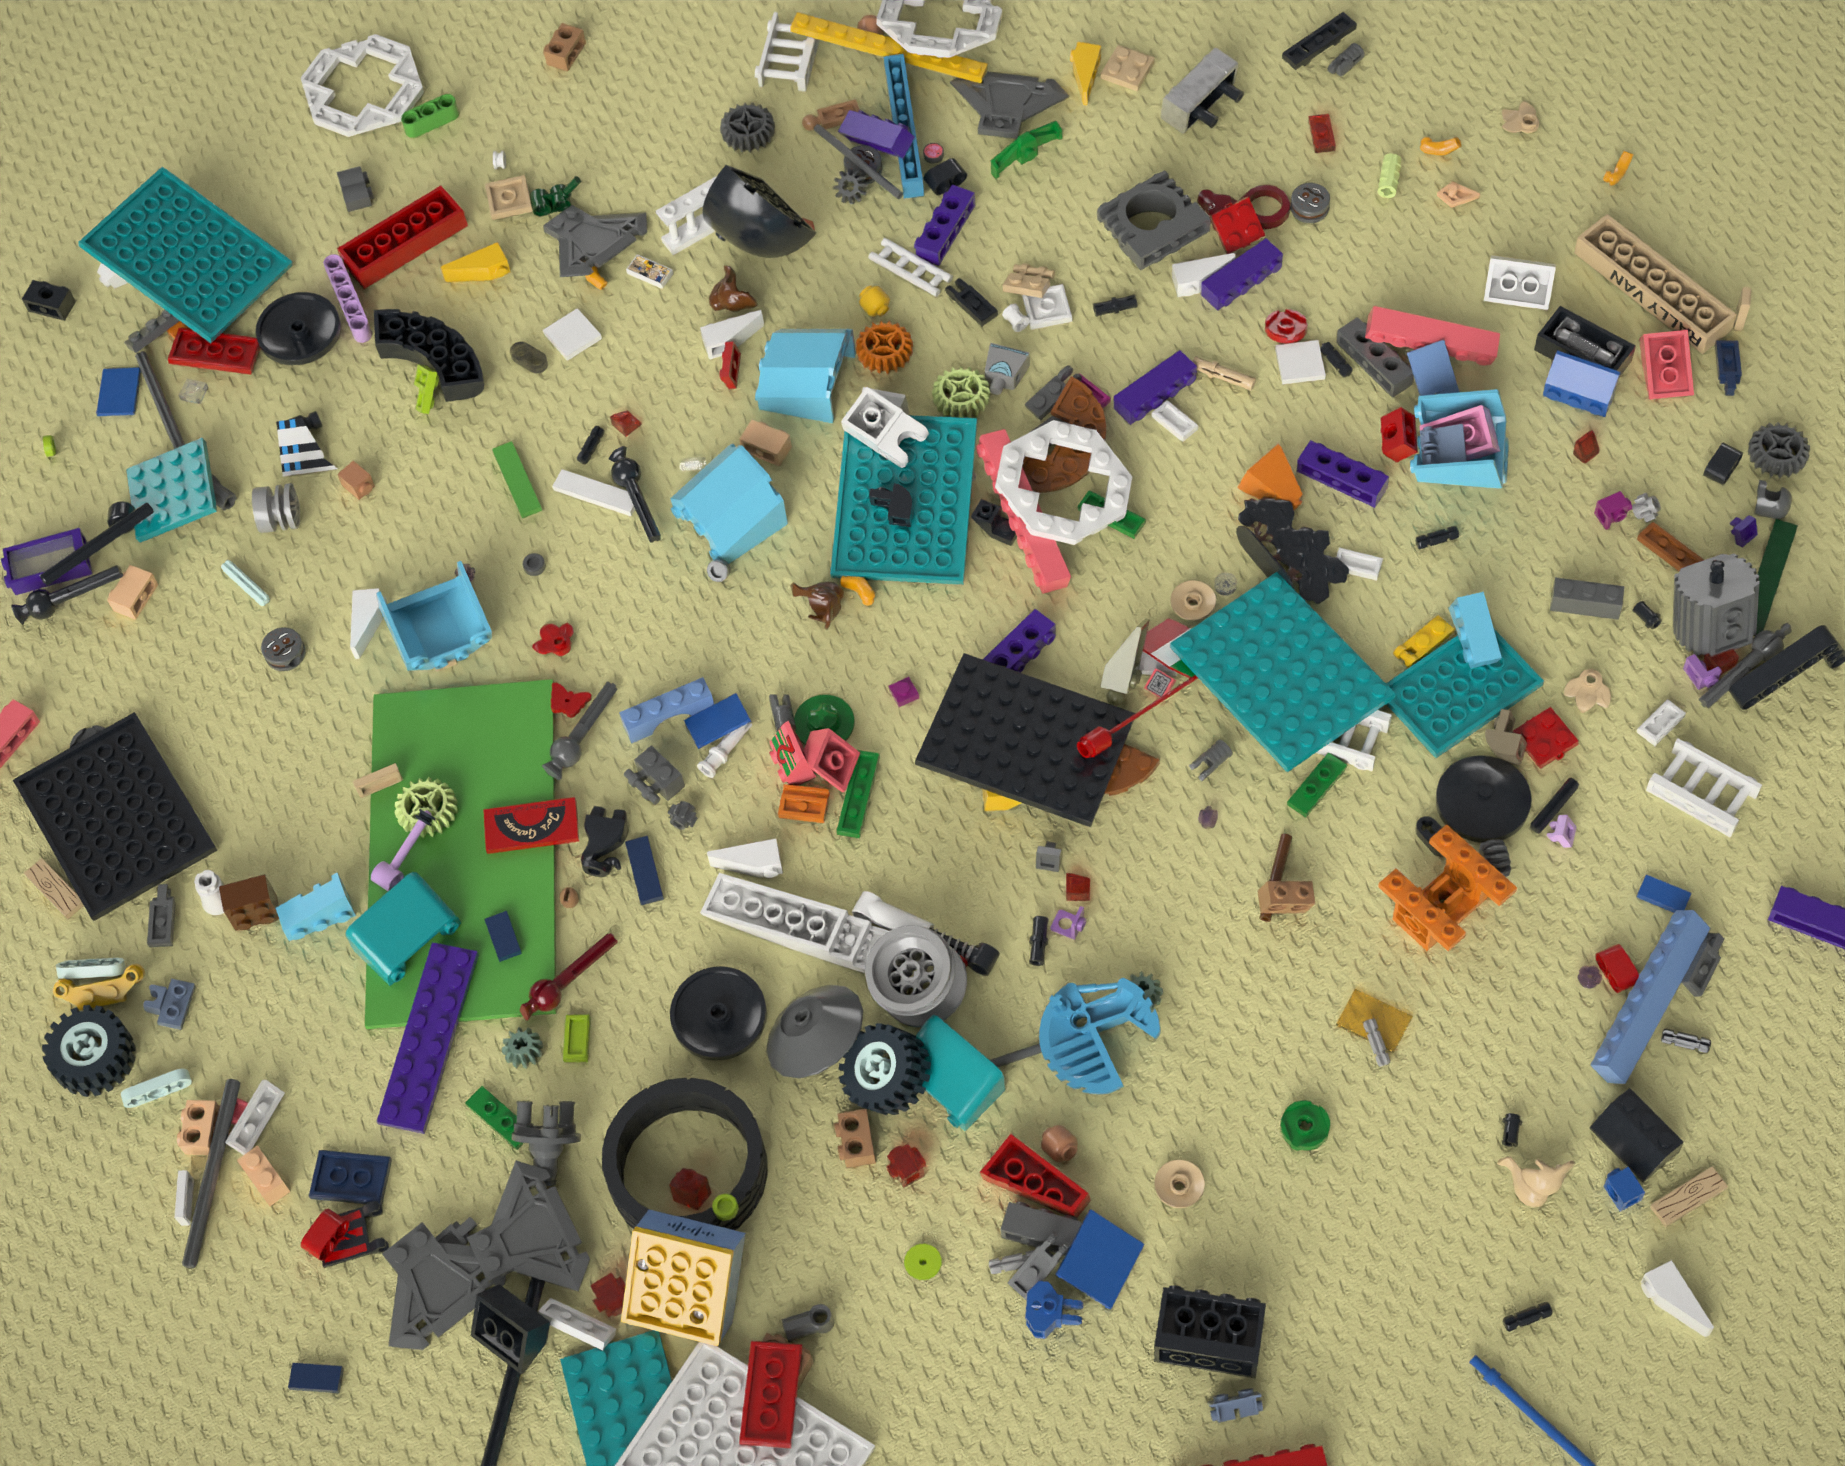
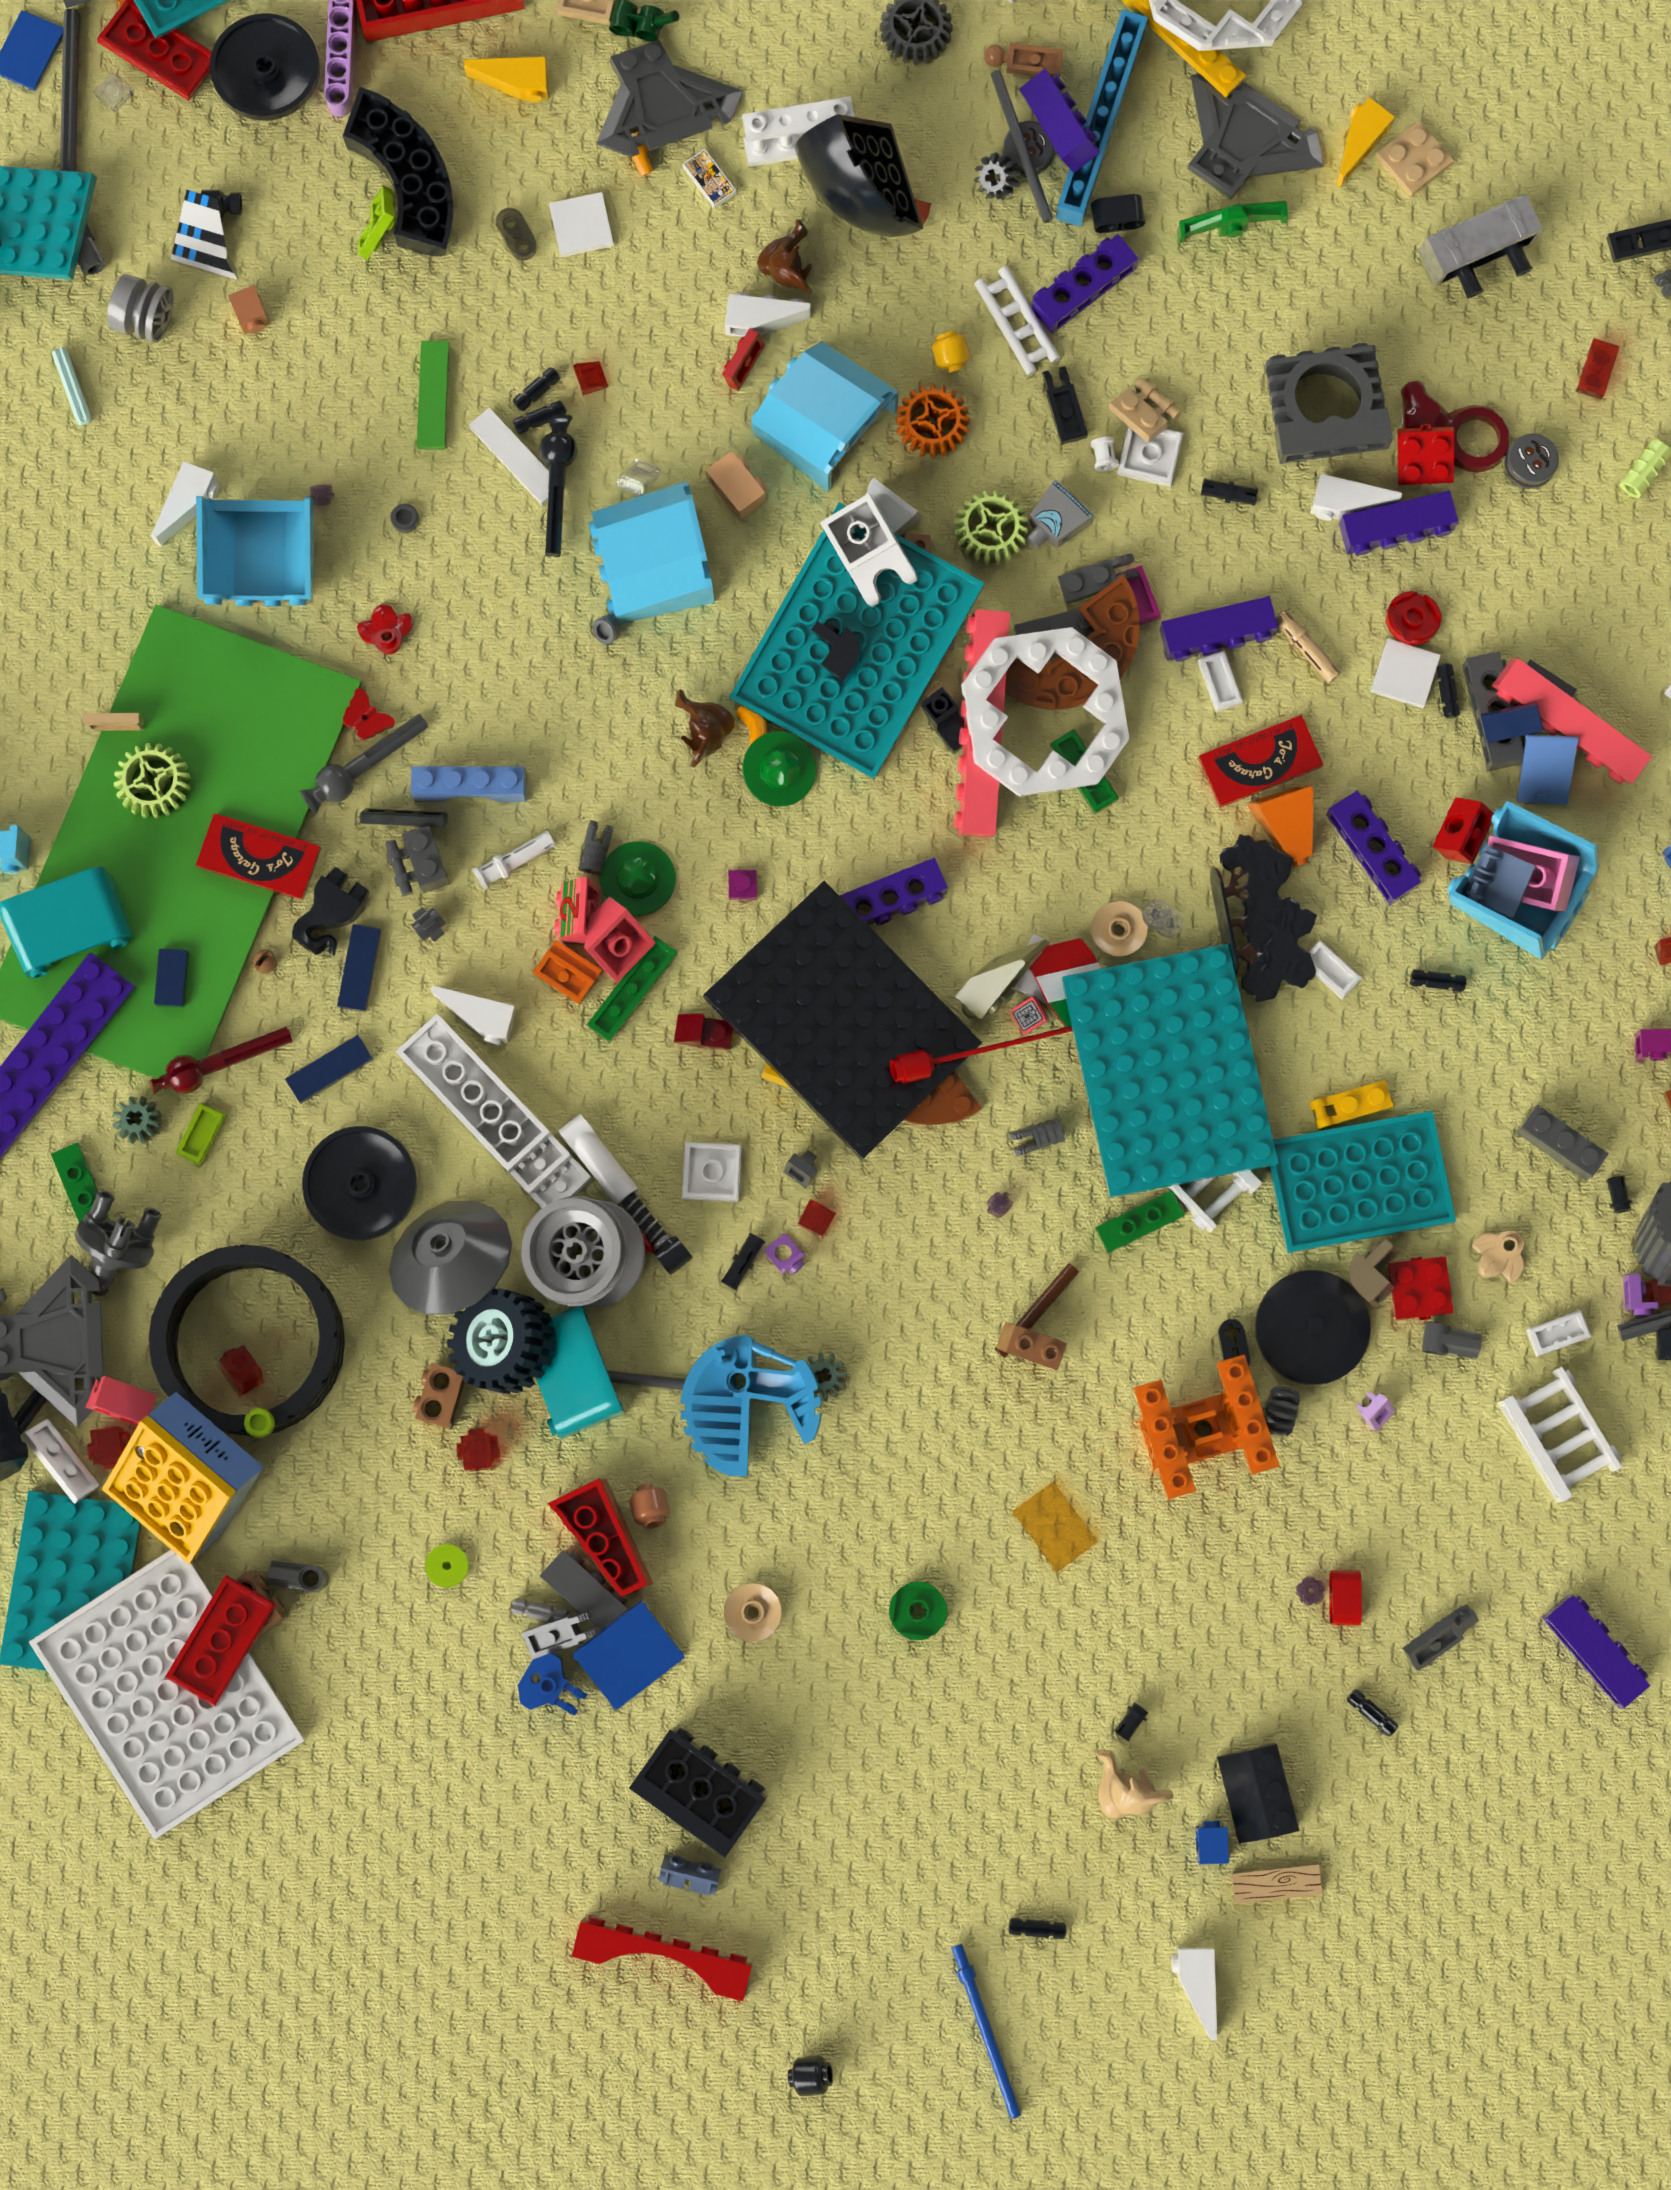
camera: 20 degrees right, 20 degrees up
(283, 649) = (79, 496): dark grey head -> none
(387, 874) = (78, 845): lavender piece -> none
(600, 462) = (538, 417): none -> black axle
(604, 1253) = (120, 1400): none -> coral hinge
(627, 753) = (403, 817): none -> pearl dark grey tile
(654, 949) = (329, 1069): none -> dark blue tile
(717, 721) = (519, 823): blue piece -> none
(890, 604) = (778, 769): none -> green hat
(925, 800) = (703, 1032): none -> dark red slope
(933, 153) = (1121, 170): tile -> none
(982, 891) = (711, 1172): none -> white tile
(1214, 578) = (1156, 914): none -> clear tile
(1231, 457) = (1260, 761): none -> red tile
(1376, 1042) = (1042, 1555): light grey axle -> none
(1392, 349) = (1511, 722): none -> dark blue tile
(1475, 630) = (1409, 1128): medium azure wedge -> none
(1554, 805) = (1385, 1374): black axle -> none
(1583, 763) = (1443, 1340): none -> dark grey piece
(1650, 997) = (1360, 1649): medium blue brick -> none
(1663, 894) = (1444, 1536): blue tile -> none

